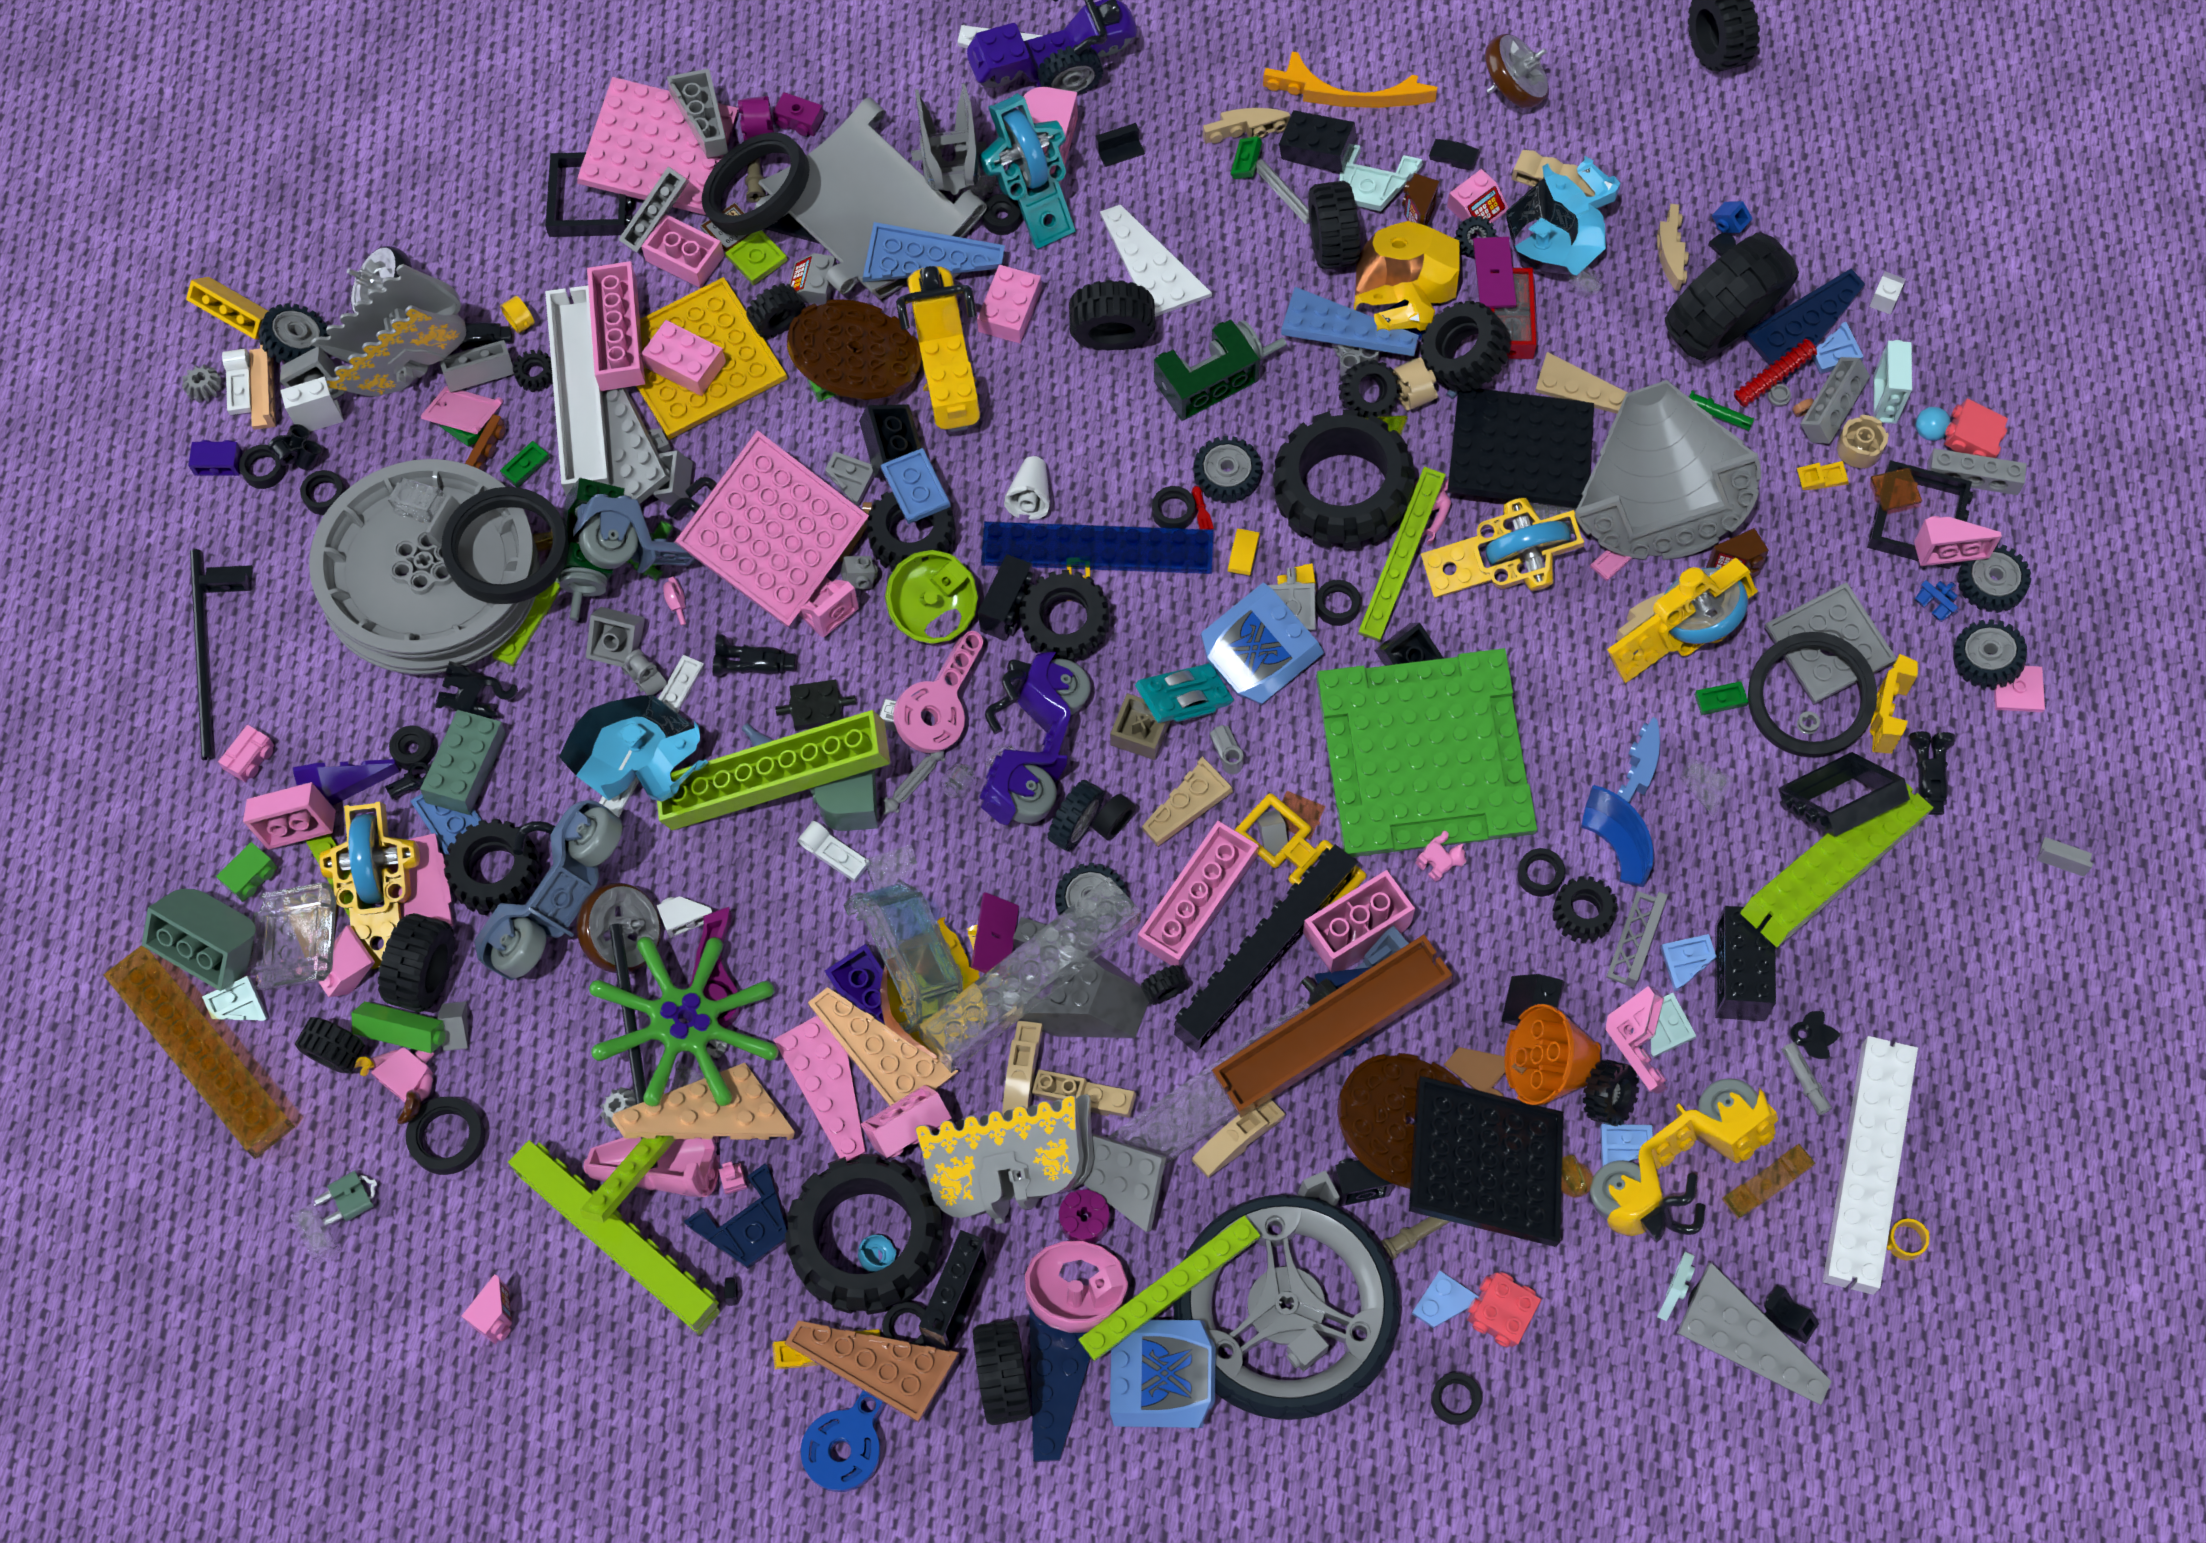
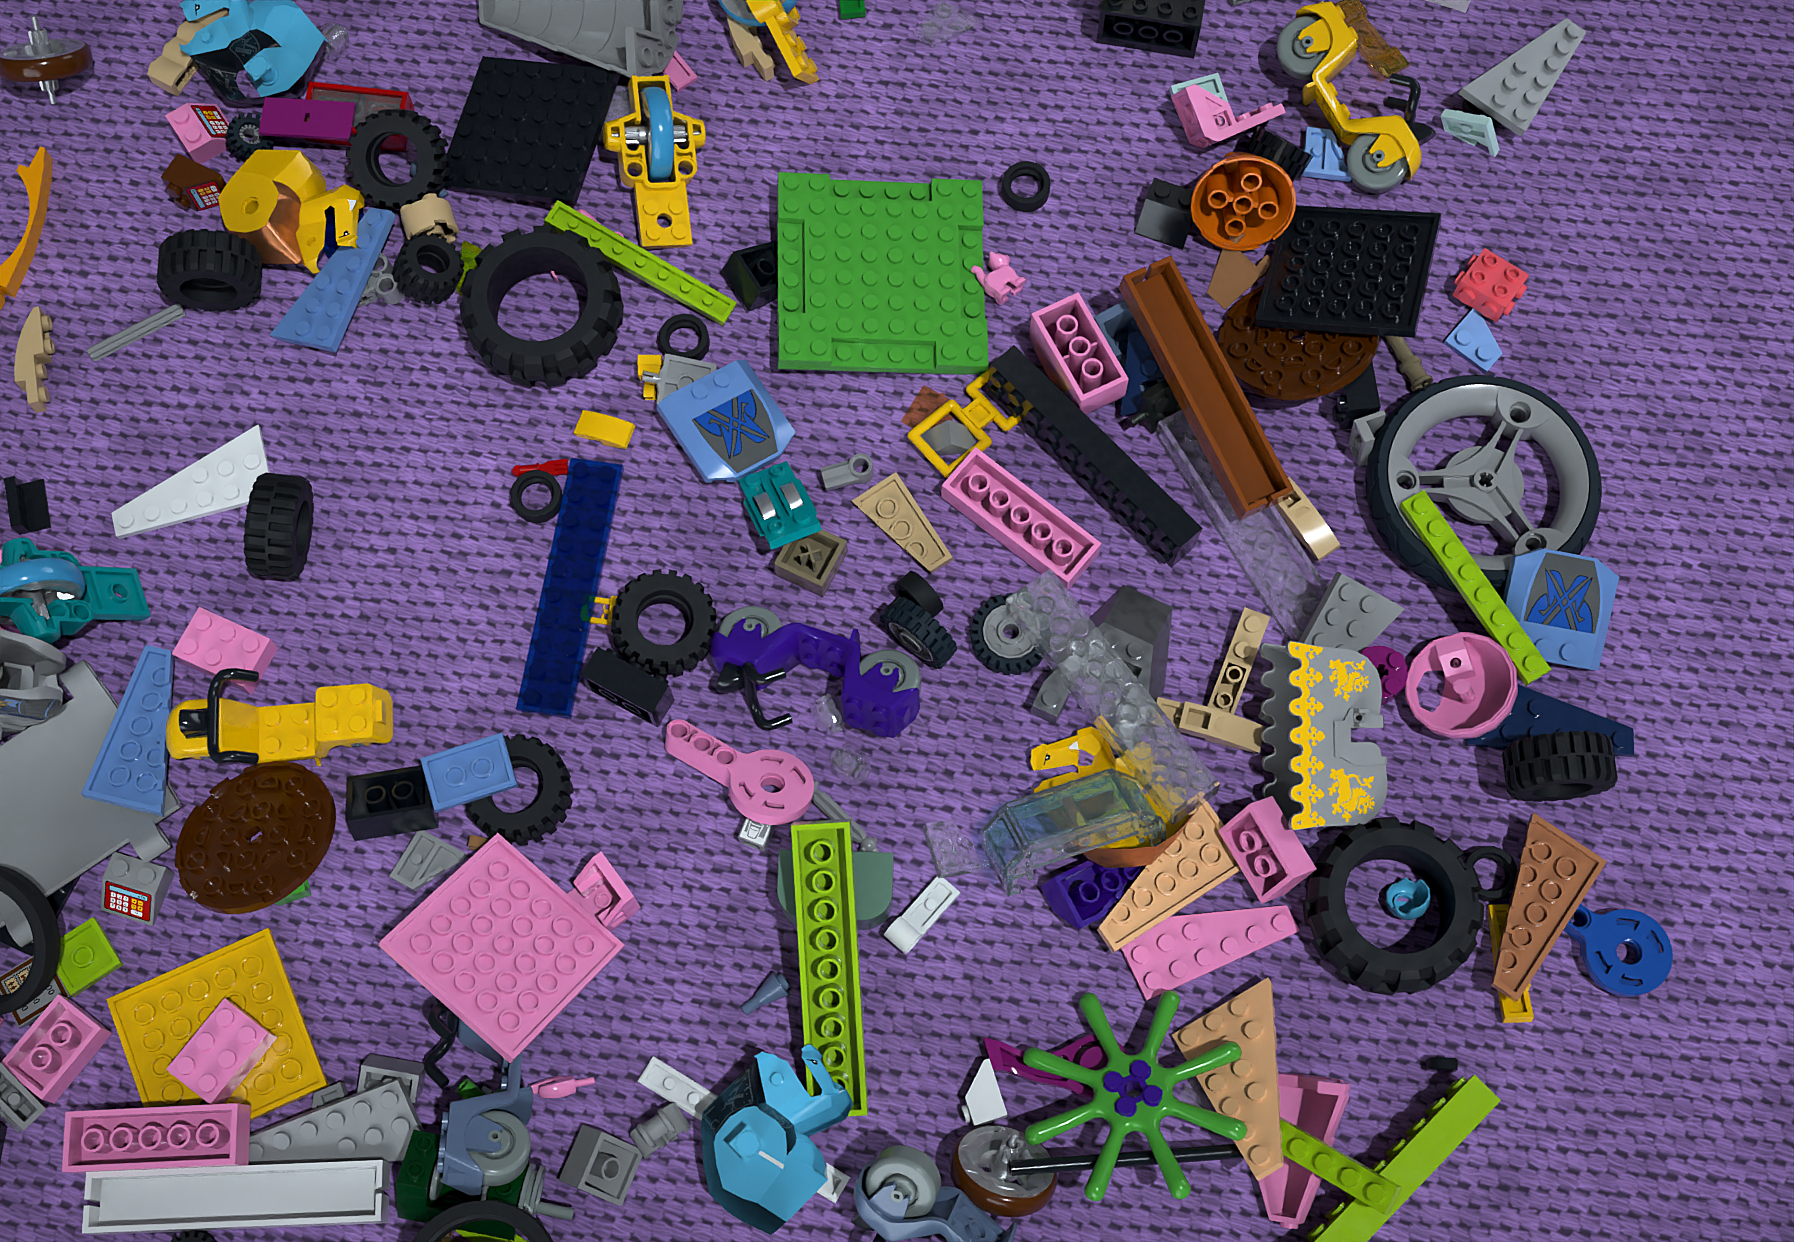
camera: 85 degrees left, 5 degrees up
(619, 1100) = (1216, 1171): light grey gear -> none
(732, 1177) = (1309, 1056): bright pink piece -> none
(752, 659) = (657, 996): black piece -> none
(752, 1231) = (1372, 1036): dark blue wing -> none
(774, 310) = (178, 930): black tyre -> none
(815, 704) = (727, 924): pearl dark grey plate -> none
(859, 571) = (563, 858): light grey brick -> none
(925, 590) = (598, 774): lime piece -> none
(954, 1292) = (1471, 808): black window -> none
(998, 919) = (1031, 736): magenta piece -> none
(1003, 226) = (89, 635): black tyre -> none
(1029, 490) = (485, 649): white cone -> none
(1164, 984) = (1123, 564): black tyre -> none
(1229, 454) = (491, 416): wheel -> none
(1230, 369) = (348, 404): dark green piece -> none
(1246, 157) = (81, 365): green plate -> none
(1306, 1349) = (1546, 459): light grey brick -> none
(1318, 141) = (81, 281): black brick -> none
(1377, 187) = (142, 245): light aqua wing -> none
(1458, 154) = (130, 144): black slope -> none
(1470, 1384) = (1567, 358): black tyre -> none
(1570, 382) = (455, 72): tan wing -> none
(1575, 1177) = (1359, 197): clear yellow piece -> none
(1576, 925) = (1074, 167): black tyre -> none
(1624, 830) = (1000, 95): blue panel -> none
(1643, 761) = (909, 70): medium blue slope -> none
(1643, 946) = (1111, 102): light grey fence -> none
(1687, 958) = (1132, 70): light blue wing -> none
(1790, 1317) = (1504, 40): black brick -> none

